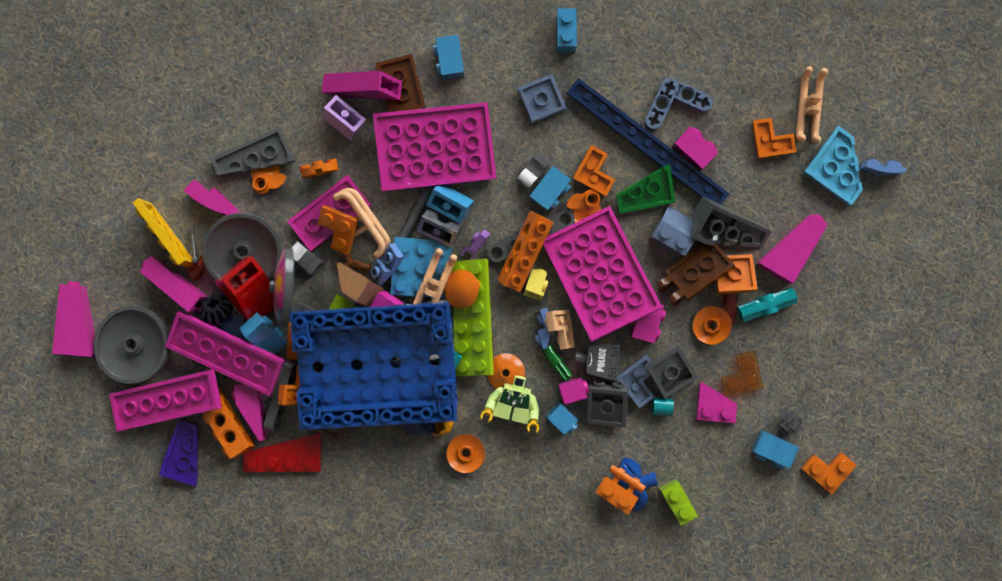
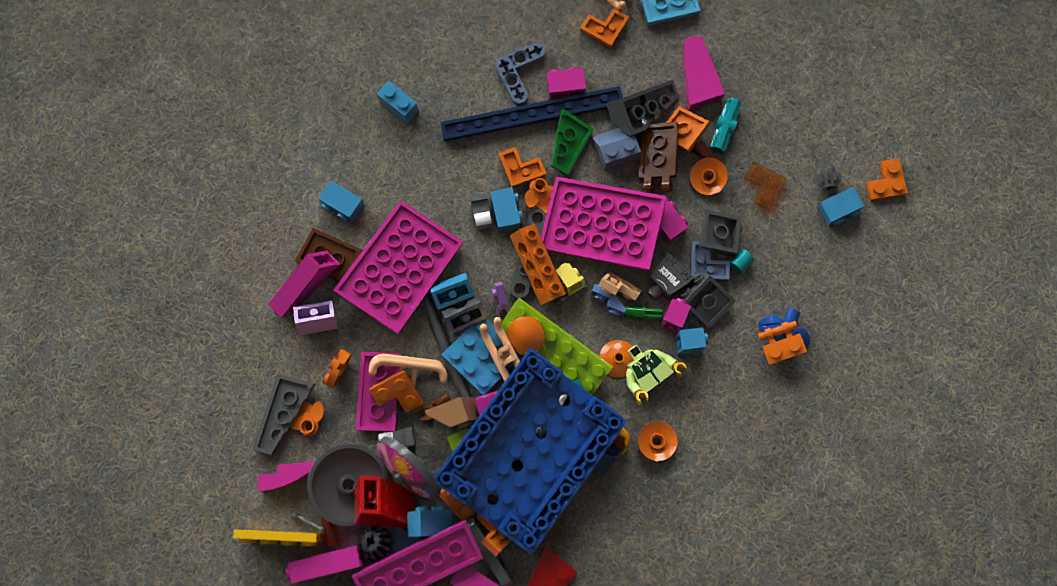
camera: 55 degrees left, 10 degrees down
(386, 266) = (458, 378): medium blue slope -> none
(541, 99) = (432, 161): sand blue plate -> none
(678, 502) = (826, 308): lime brick -> none
(714, 406) = (771, 224): dark pink wing -> none

